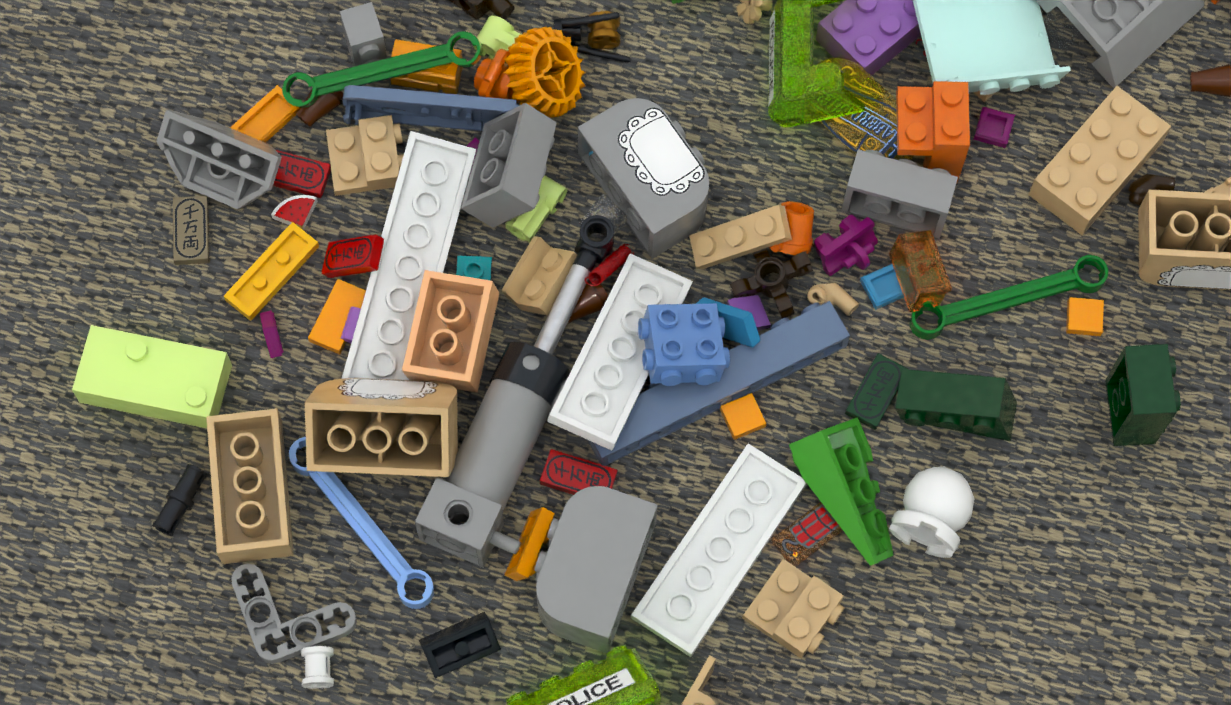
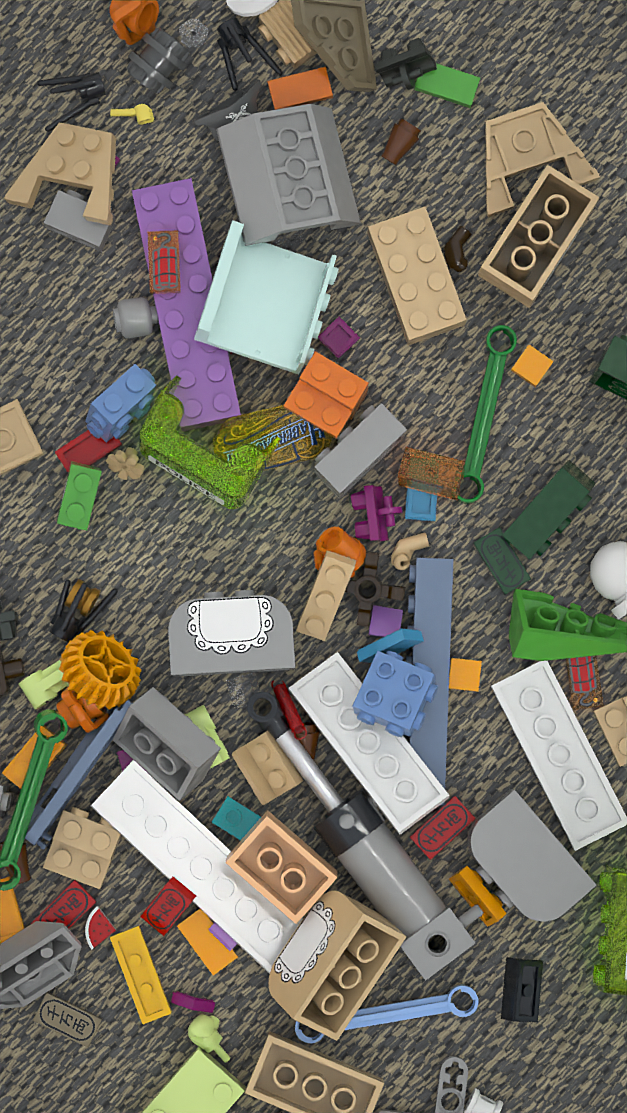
camera: 60 degrees left, 15 degrees up
(245, 360) = (205, 1035): none -> yellowish green piece

